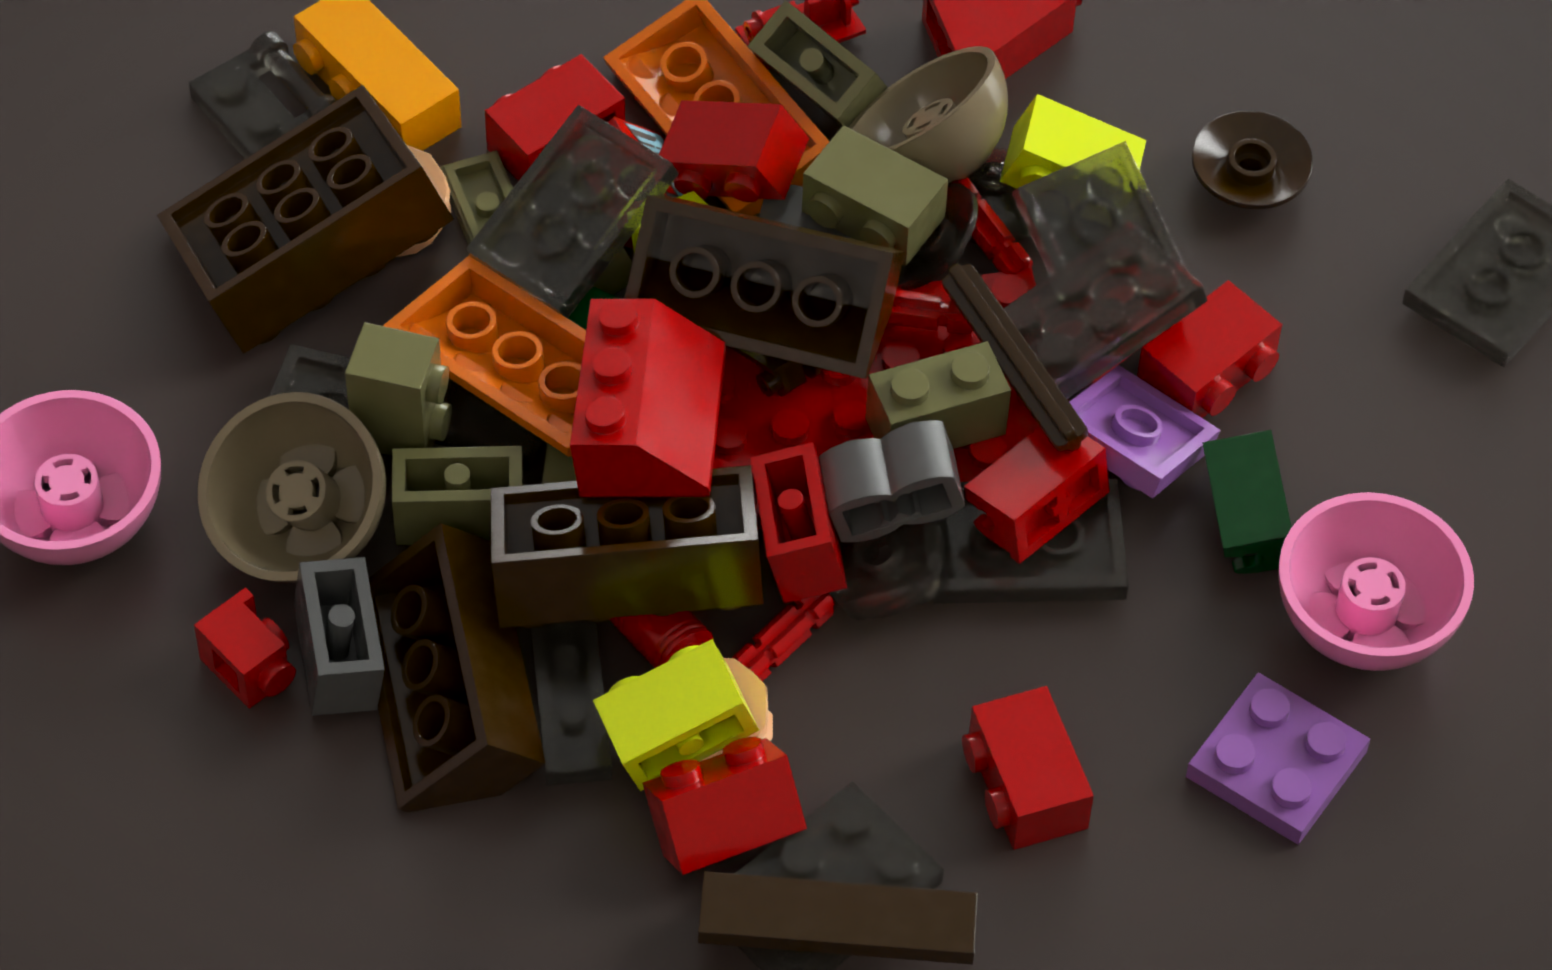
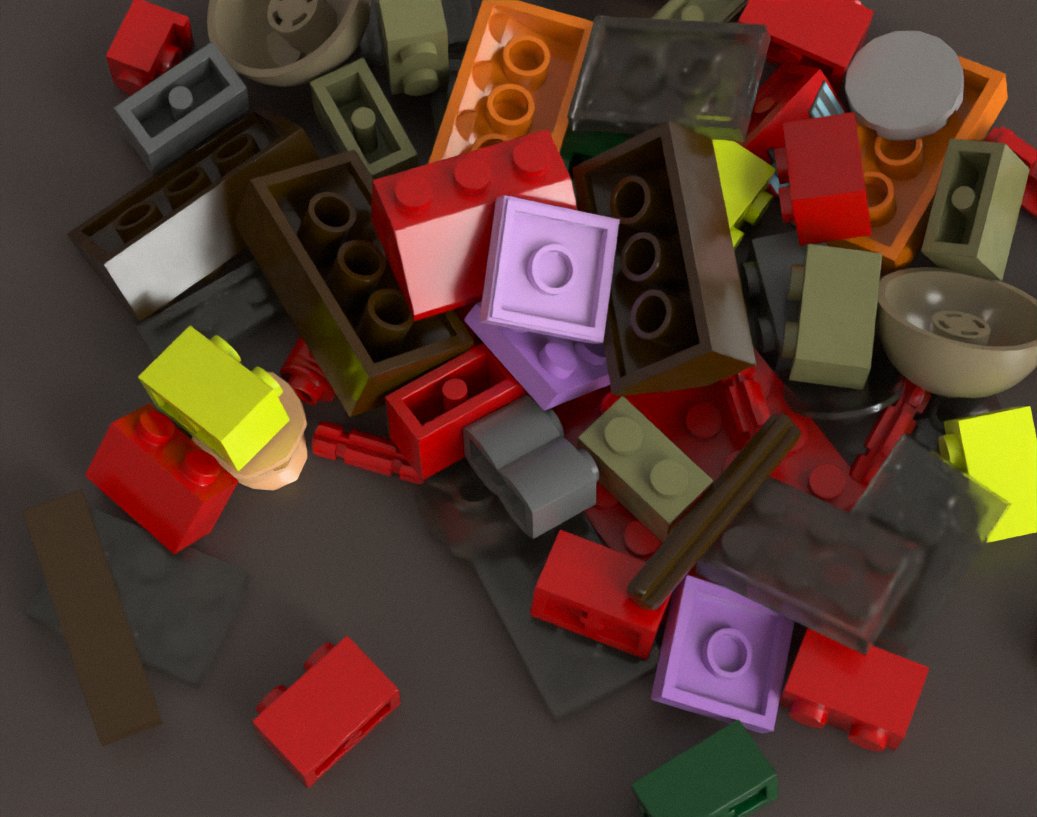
camera: 65 degrees right, 15 degrees up
(661, 63) = (904, 84): none -> light grey tile
(730, 358) = (549, 270): none -> lavender tile
(781, 421) = (545, 365): none -> medium lavender plate

